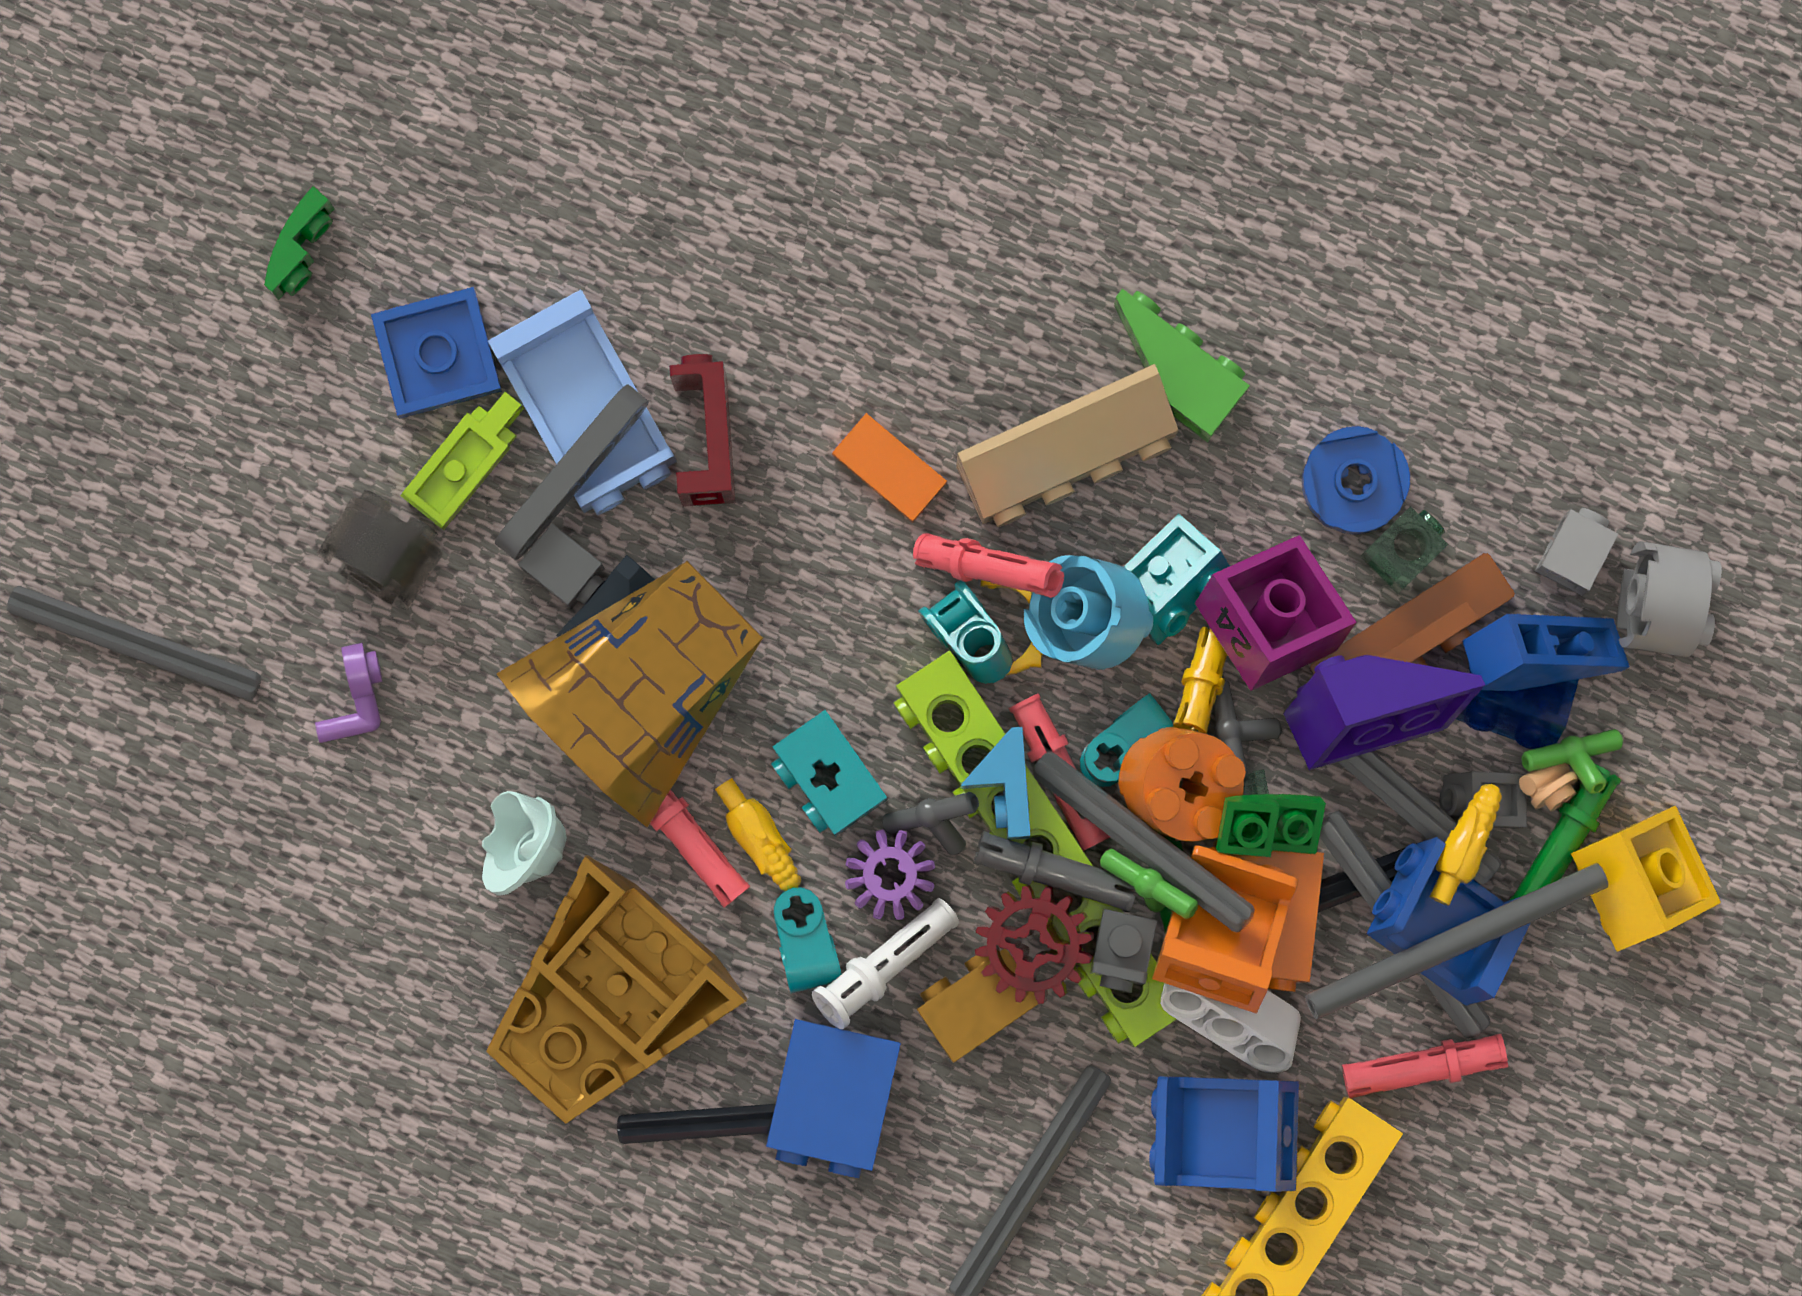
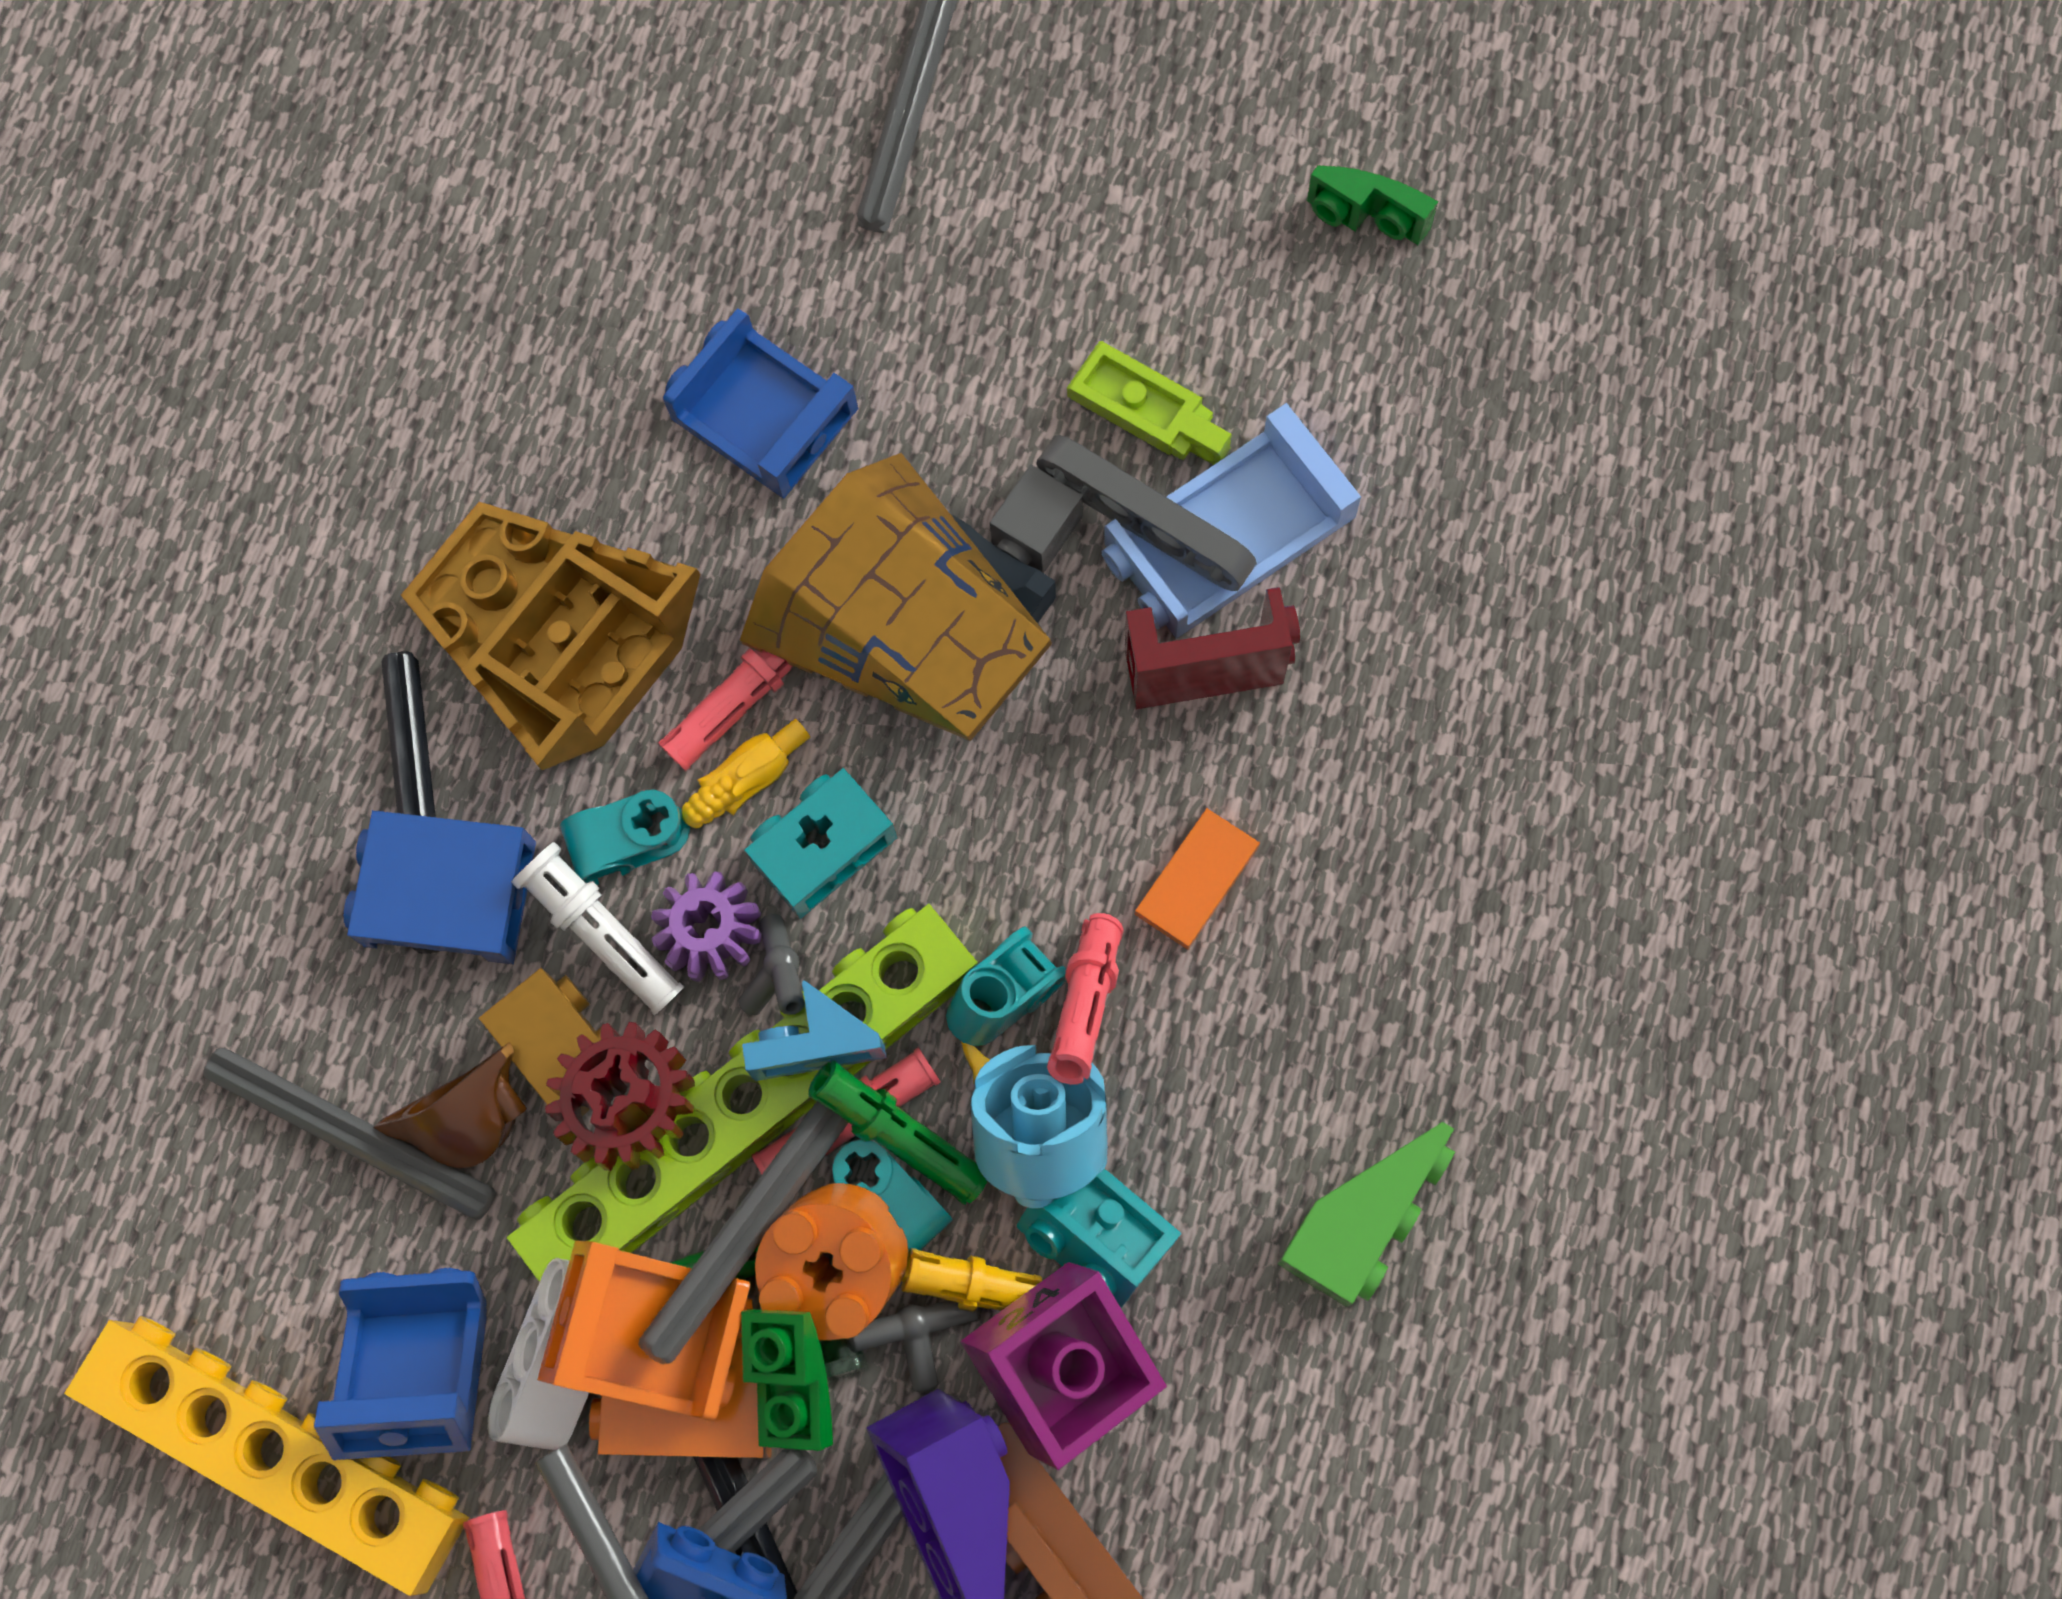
camera: 90 degrees right, 10 degrees down
(362, 672) = (890, 323): medium lavender plate -> none
(382, 550) = (1031, 320): clear smoke brick -> none
(421, 799) = (758, 404): none -> blue panel
(436, 352) = (1266, 359): blue plate -> none
(523, 844) = (713, 514): light aqua piece -> none
(1026, 1085) = (463, 1118): none -> reddish brown hat
(1035, 865) = (711, 1114): dark grey pin -> none
(1067, 446) = (1247, 1081): tan slope -> none
(1070, 740) = (878, 1118): none -> green pin
(1123, 950) = (618, 1207): dark grey bracket -> none
(1149, 885) = (698, 1229): bright green piece -> none
(1372, 455) = (1285, 1479): blue plate -> none
(1392, 568) = (1136, 1530): clear green brick -> none

